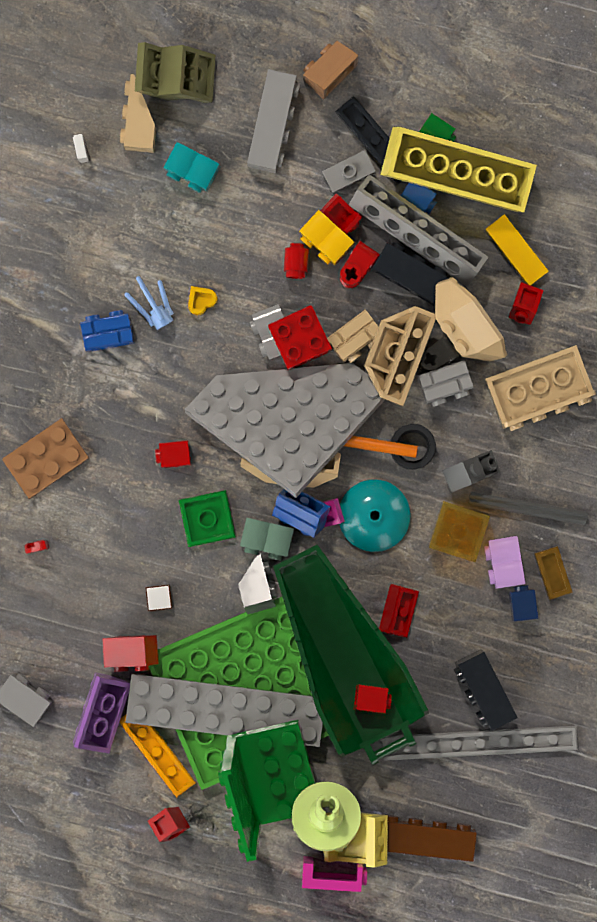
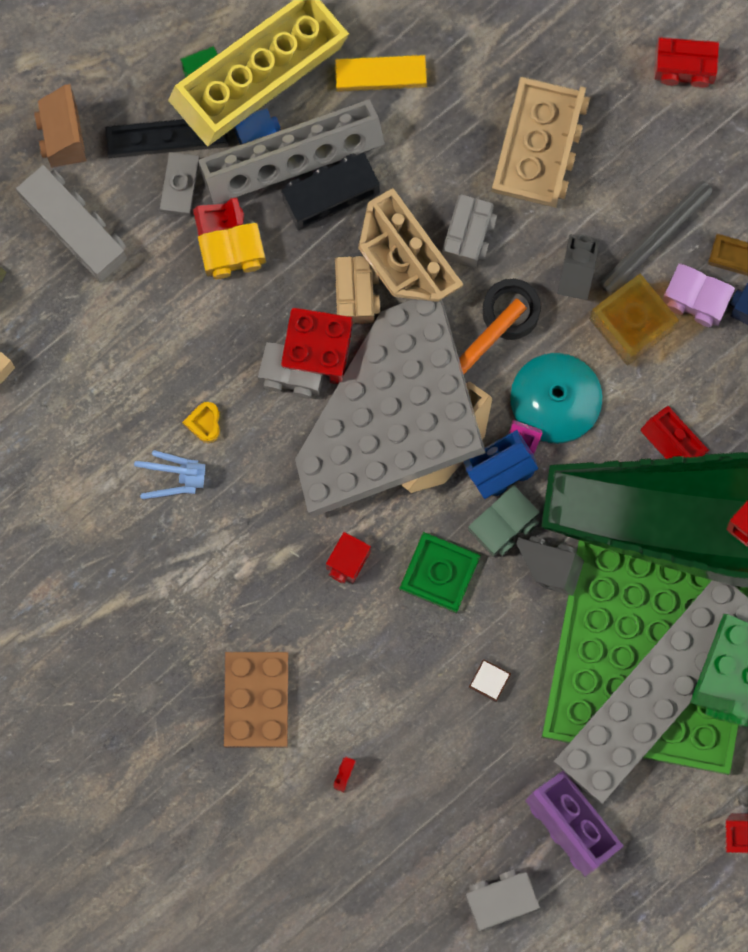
camera: 60 degrees left, 10 degrees down
(107, 332) = (168, 540): blue brick -> none
(130, 652) = (528, 746): brick -> none
(160, 756) = (661, 796): light orange tile -> none
(191, 167) = (59, 337): teal brick -> none
(296, 261) = (234, 296): red brick -> none
(360, 261) = (283, 235): red piece -> none
(442, 352) = (434, 214): clear smoke piece -> none
(467, 323) = (423, 161): tan wedge -> none
(525, 304) = (443, 99): red bracket -> none

